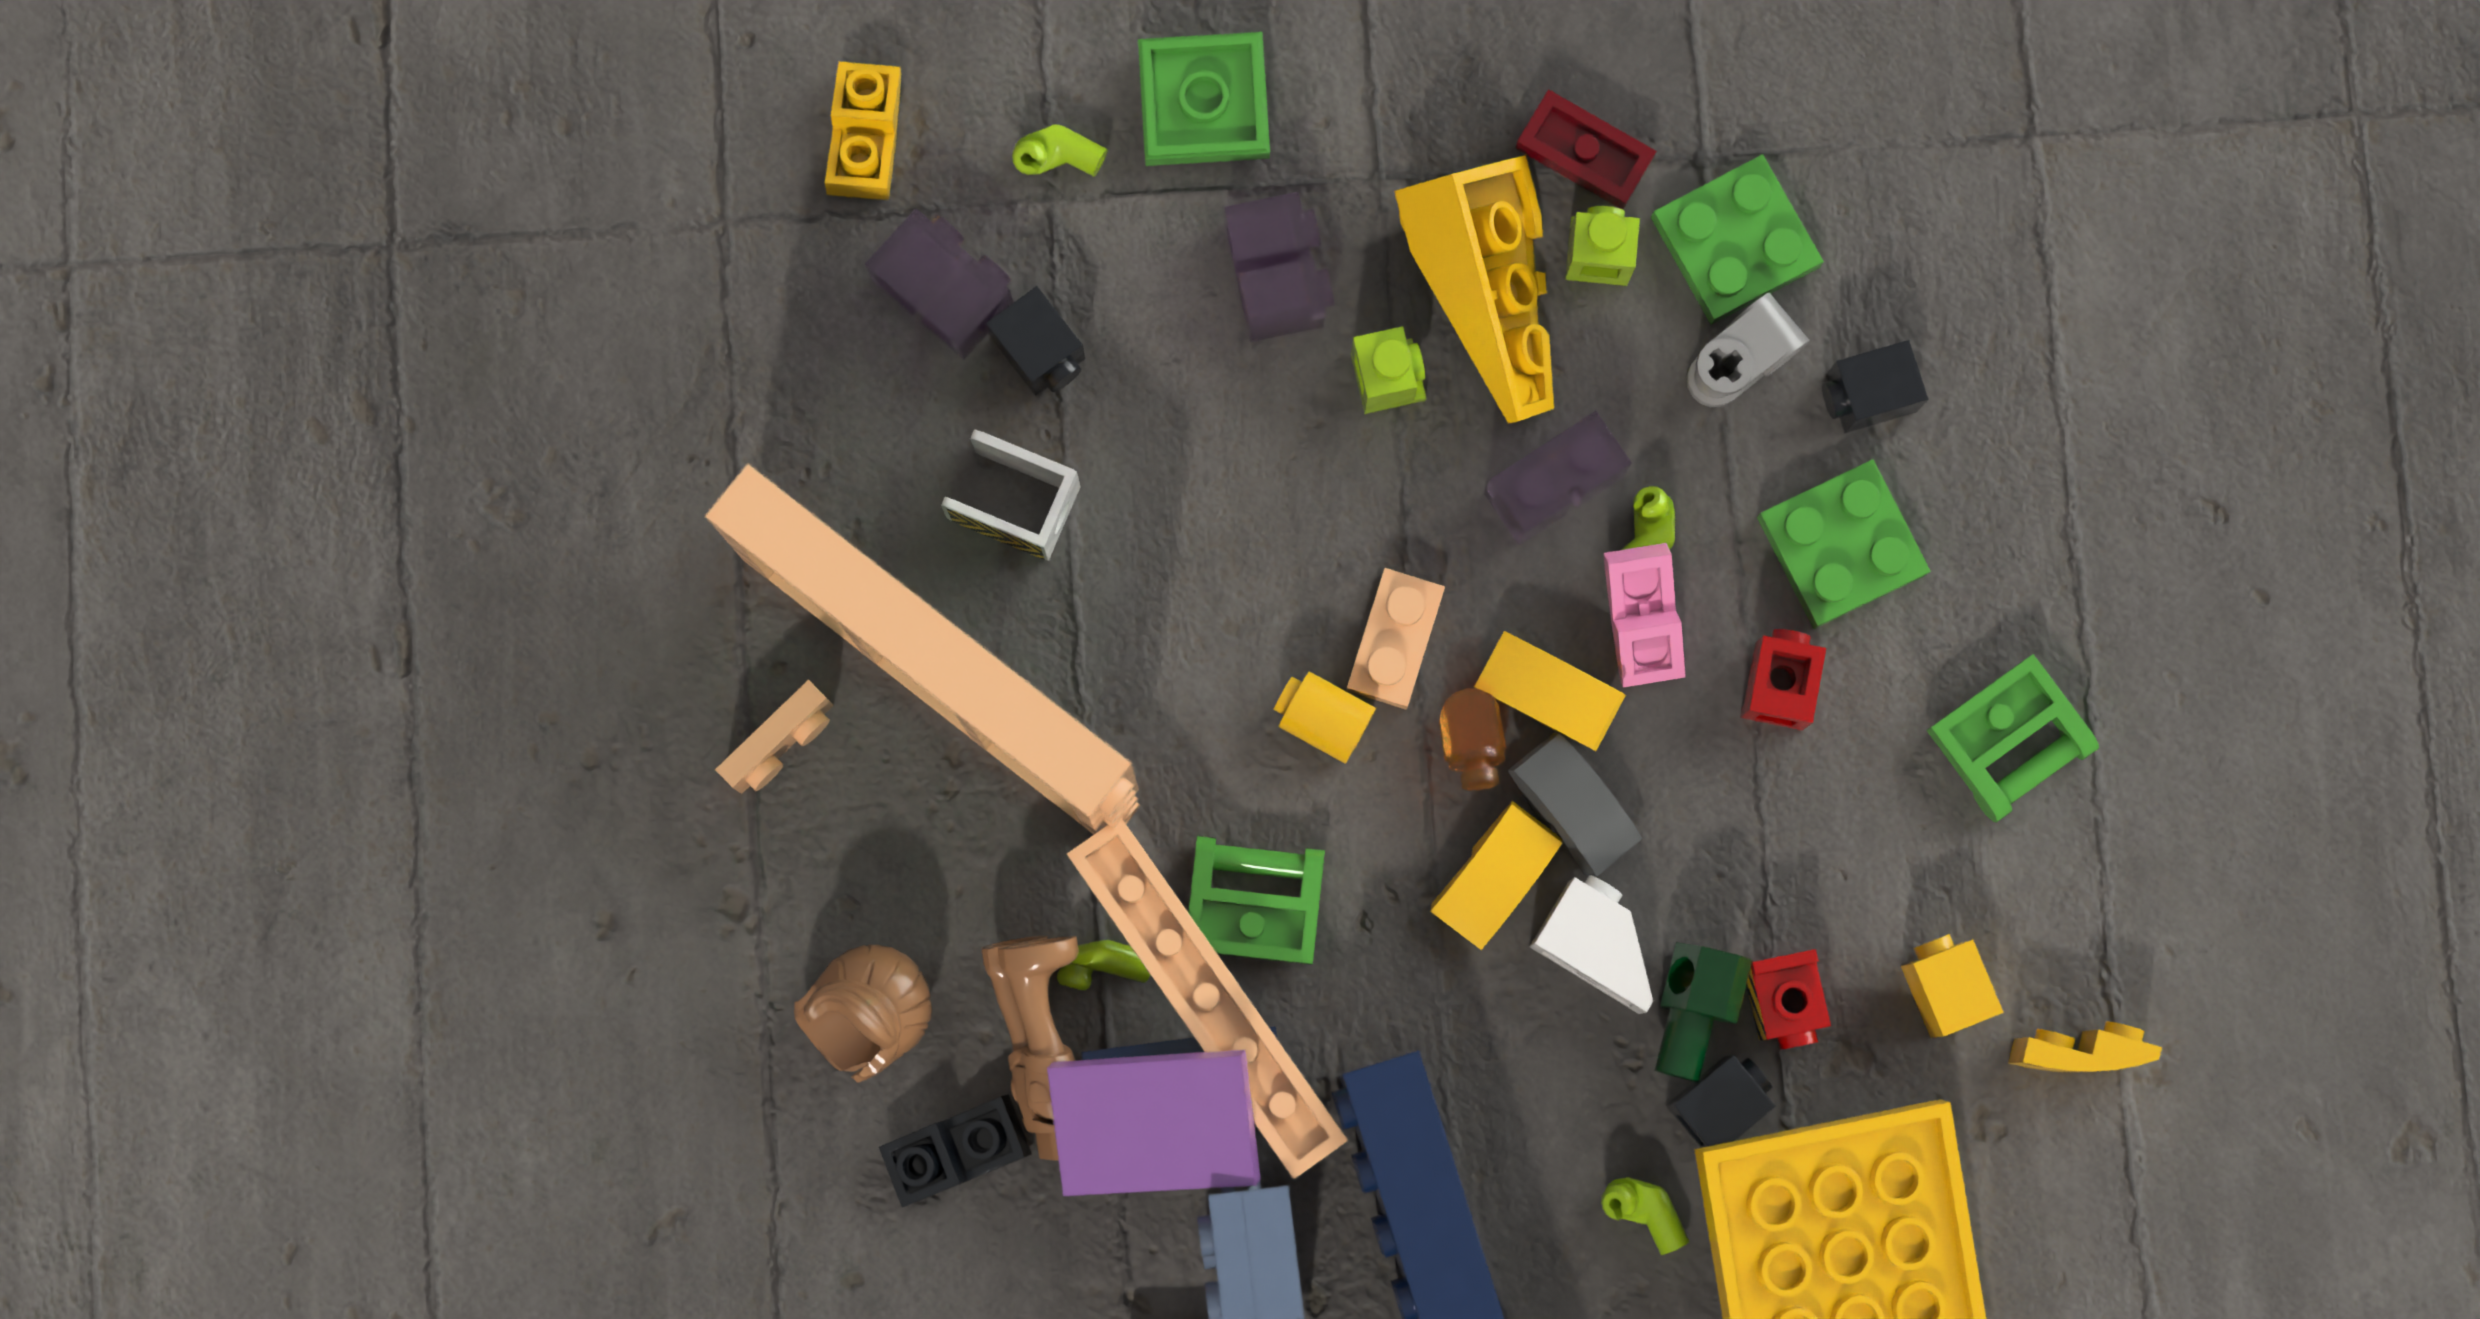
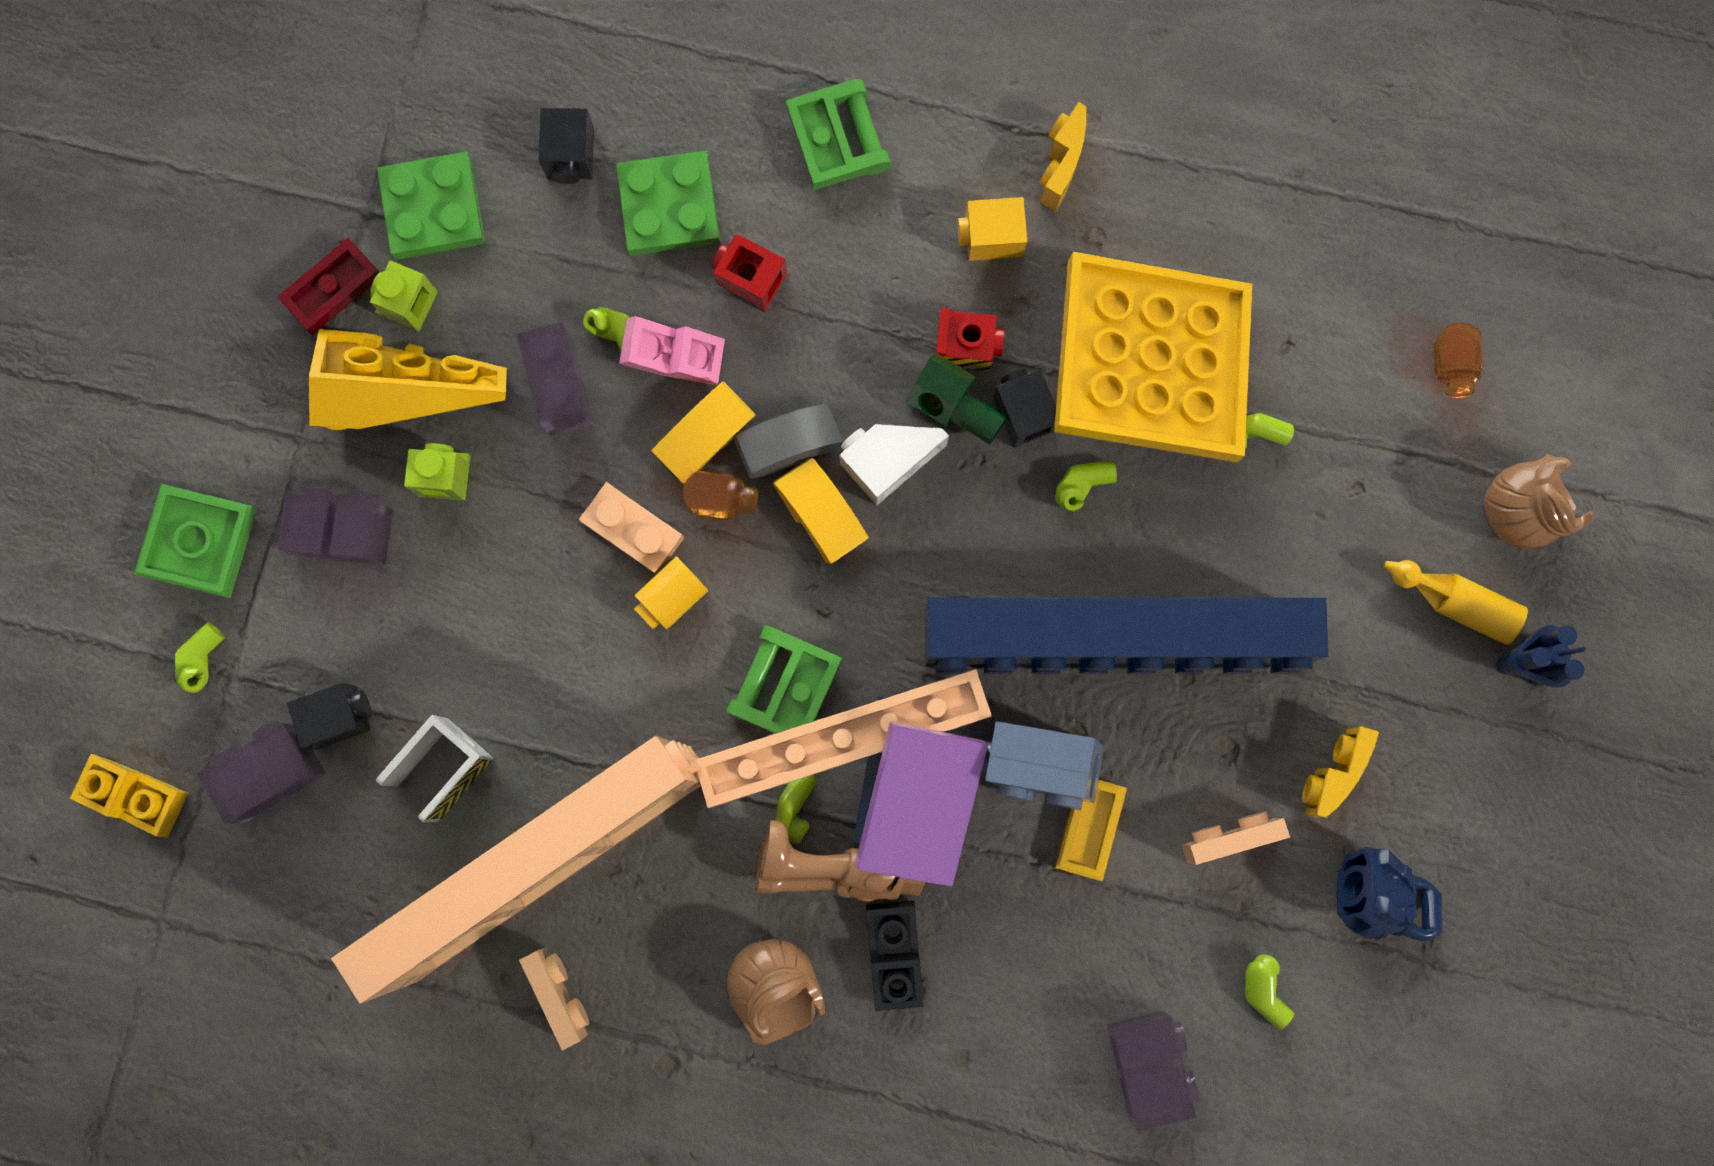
camera: 70 degrees left, 0 degrees up
(1750, 348) = (511, 222): light grey piece -> none

